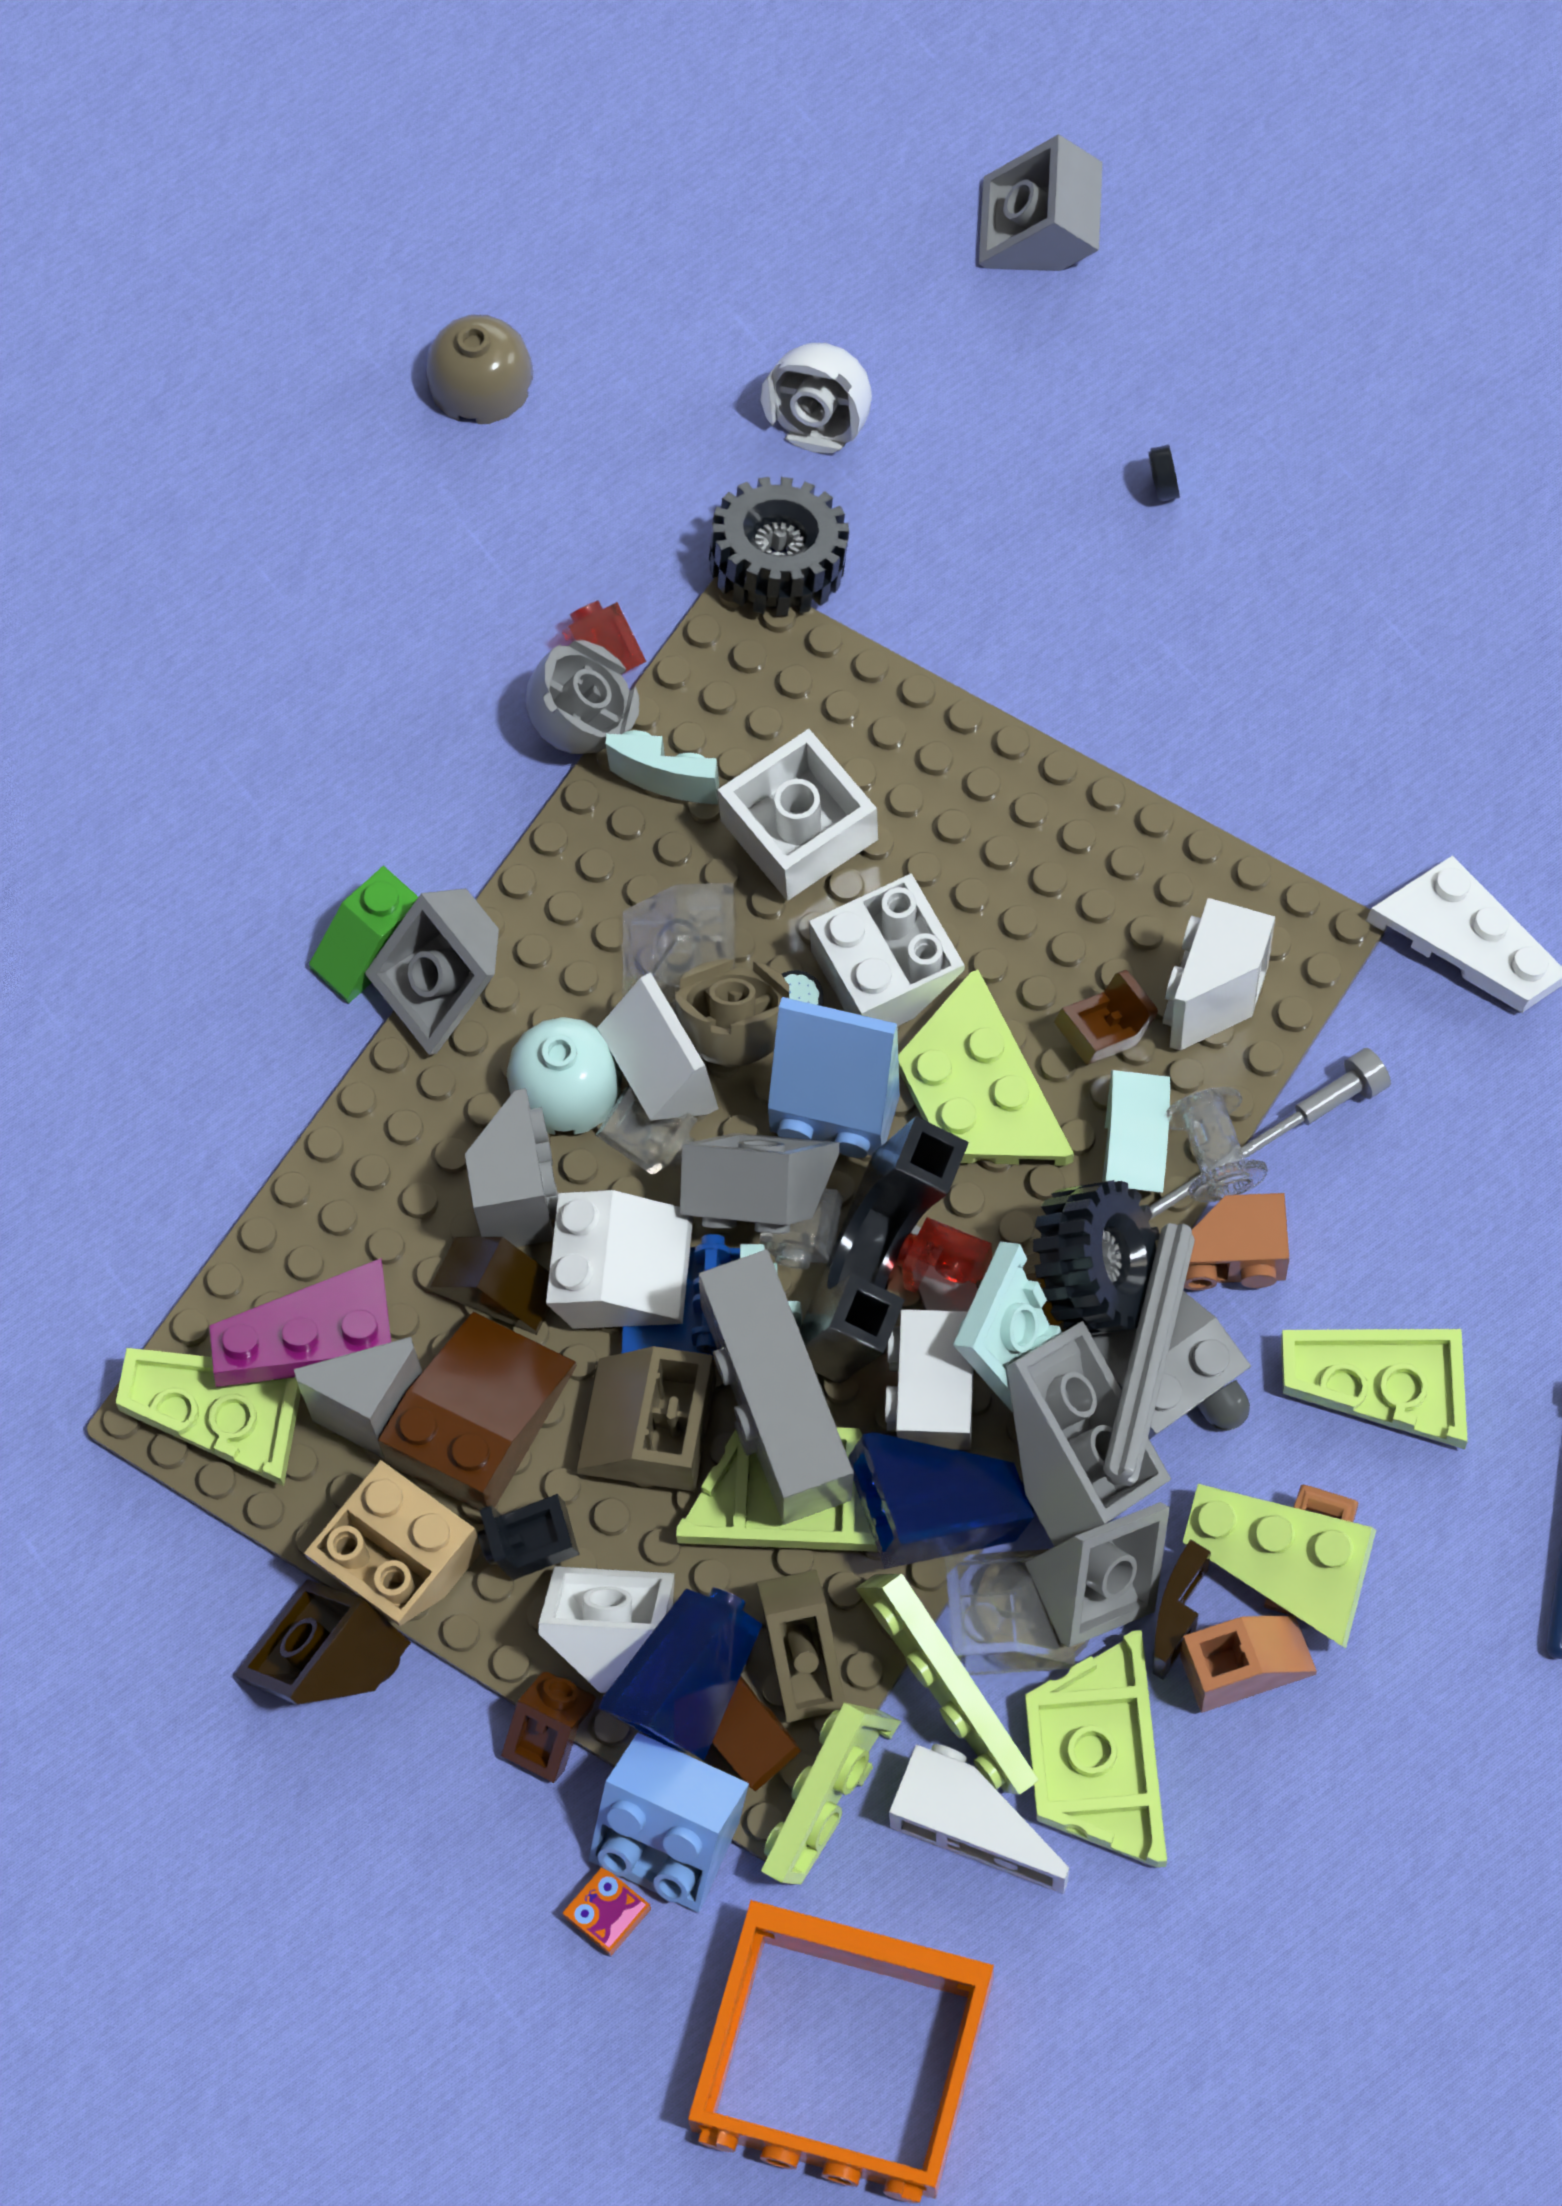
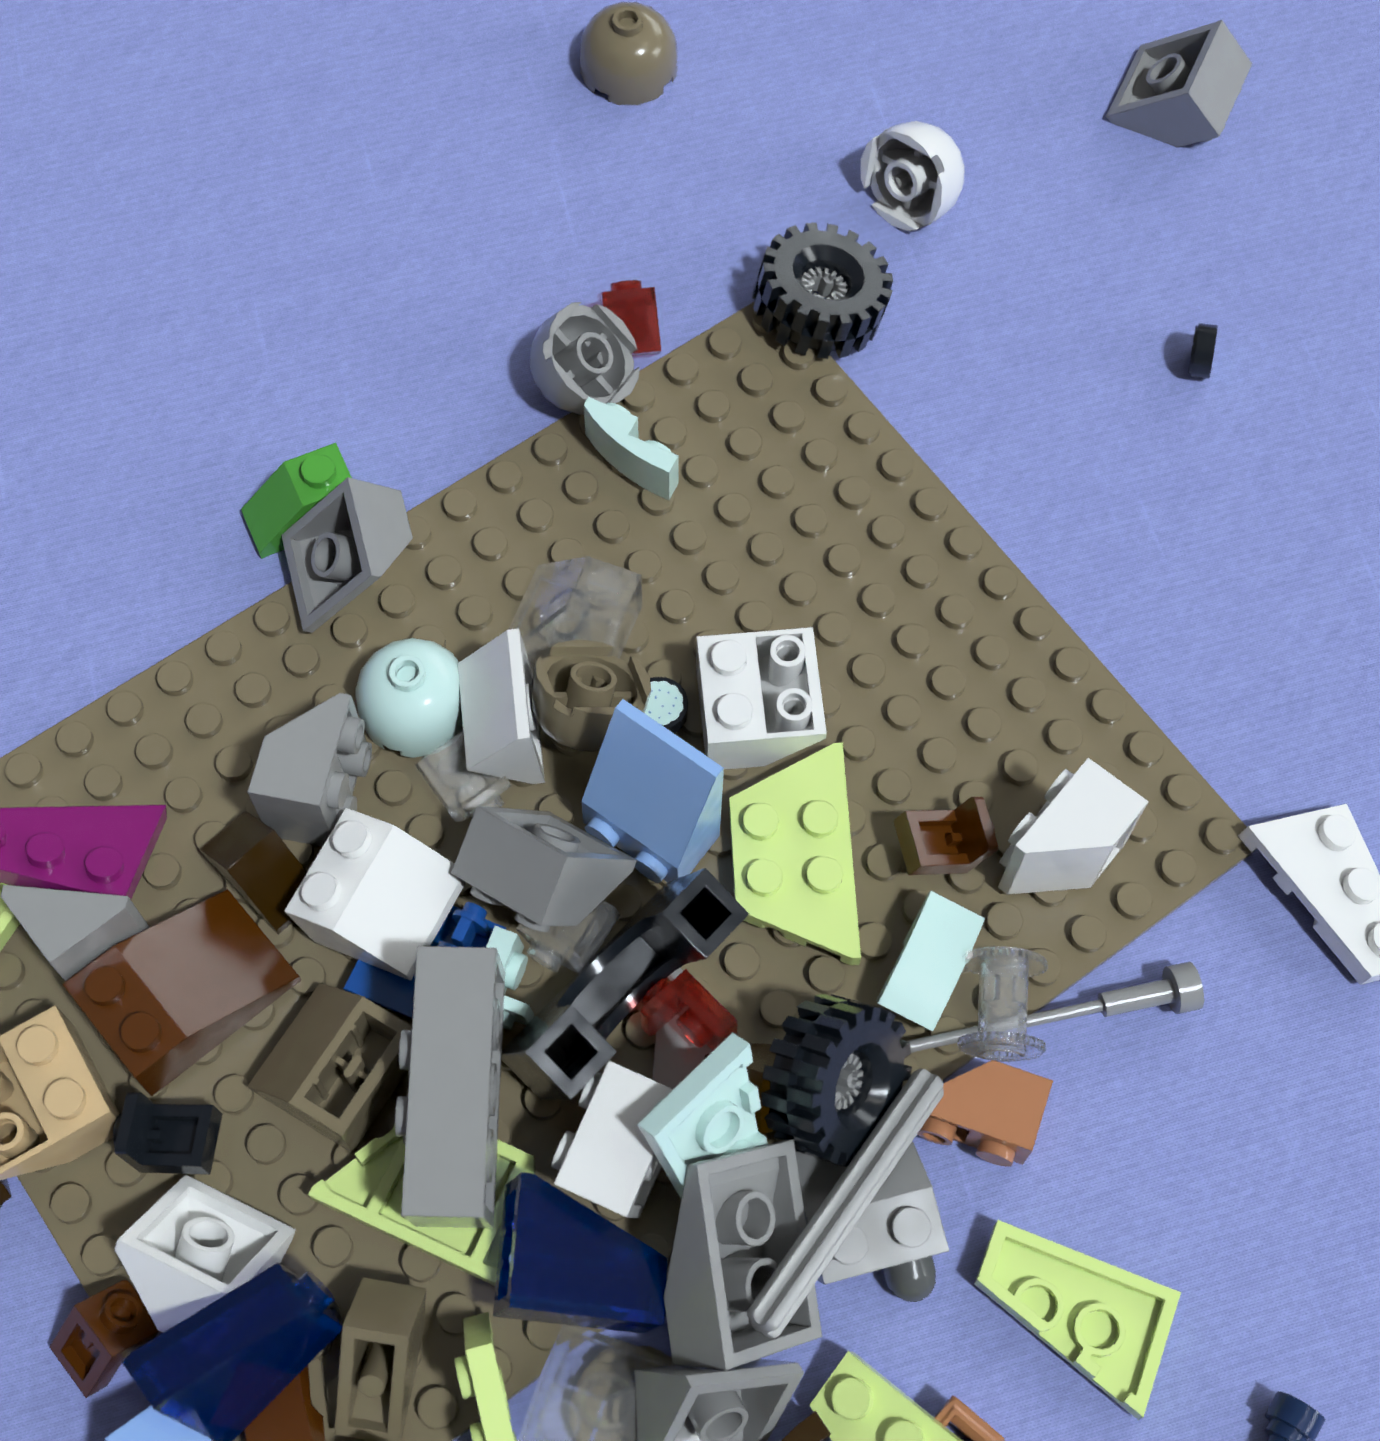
camera: 15 degrees right, 0 degrees up
(798, 814) = (733, 534): white brick -> none

